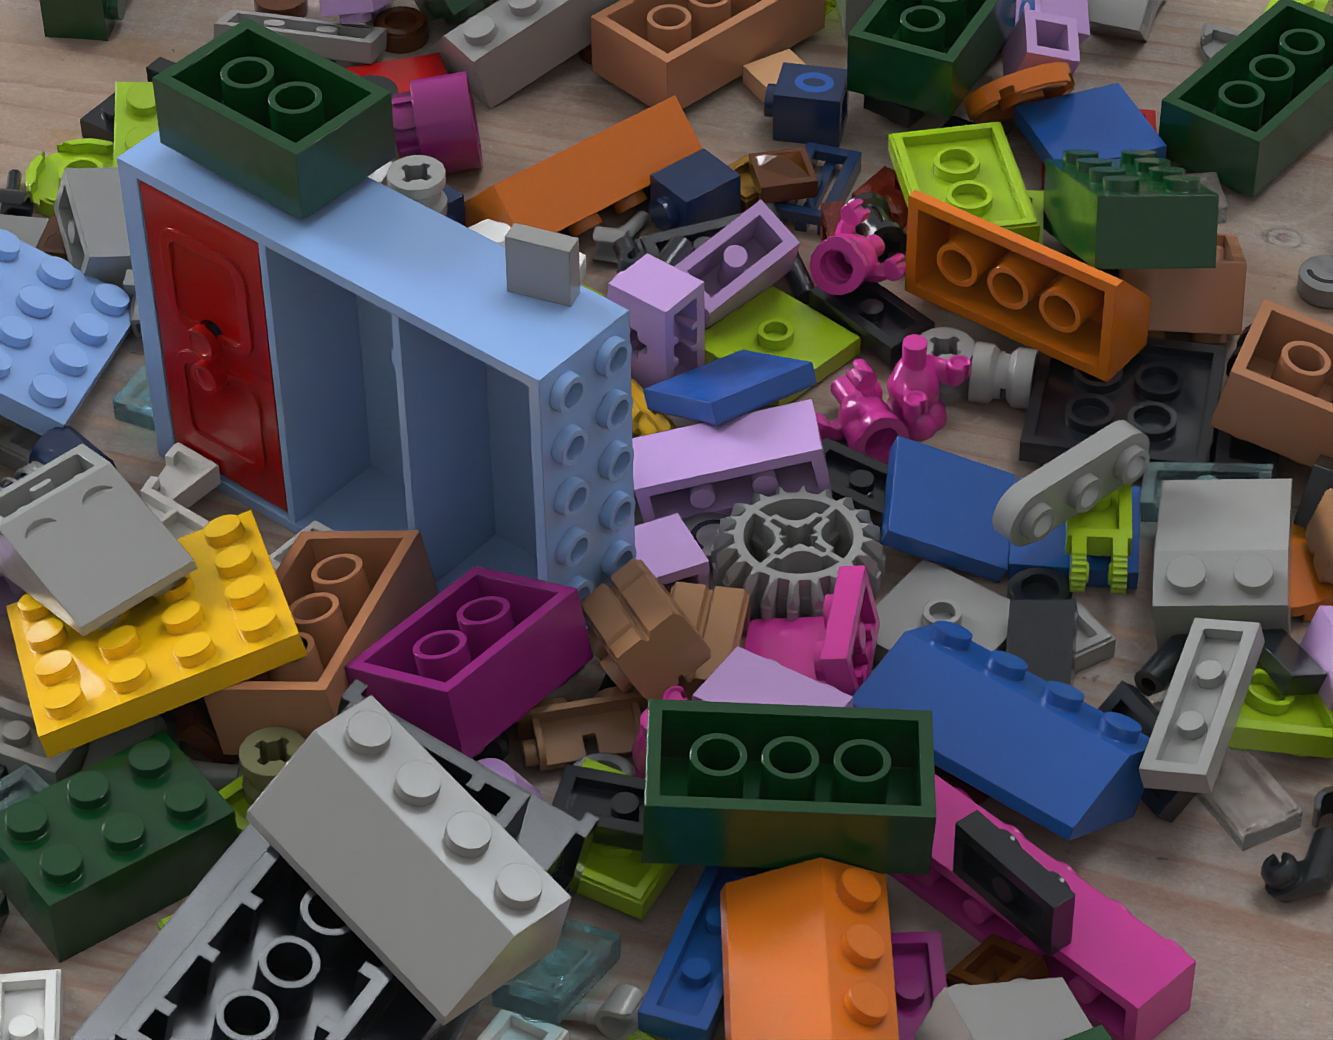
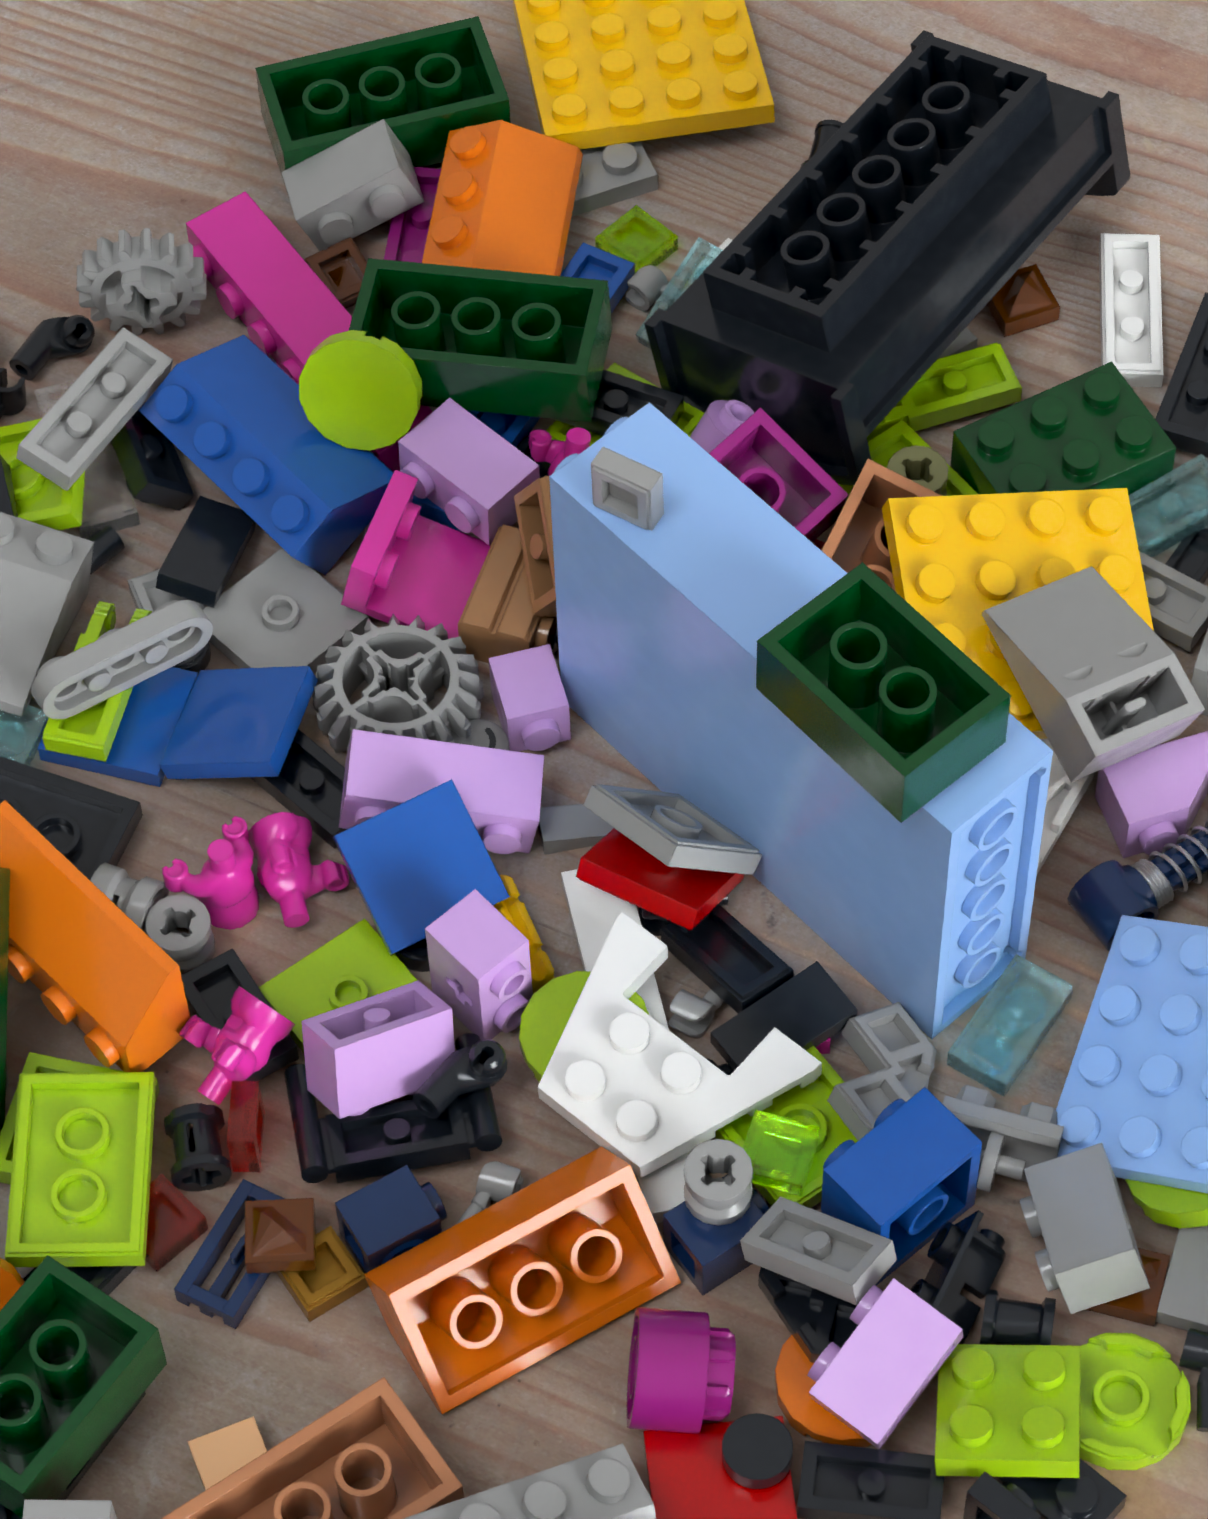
camera: 170 degrees left, 15 degrees up
(410, 860) = (806, 181): light grey slope -> none
(808, 104) = (214, 1374): dark blue brick -> none
(947, 698) = (360, 390): none -> lime tile
(1014, 882) = (318, 273): black plate -> none
(1218, 880) = (141, 281): none -> light grey gear

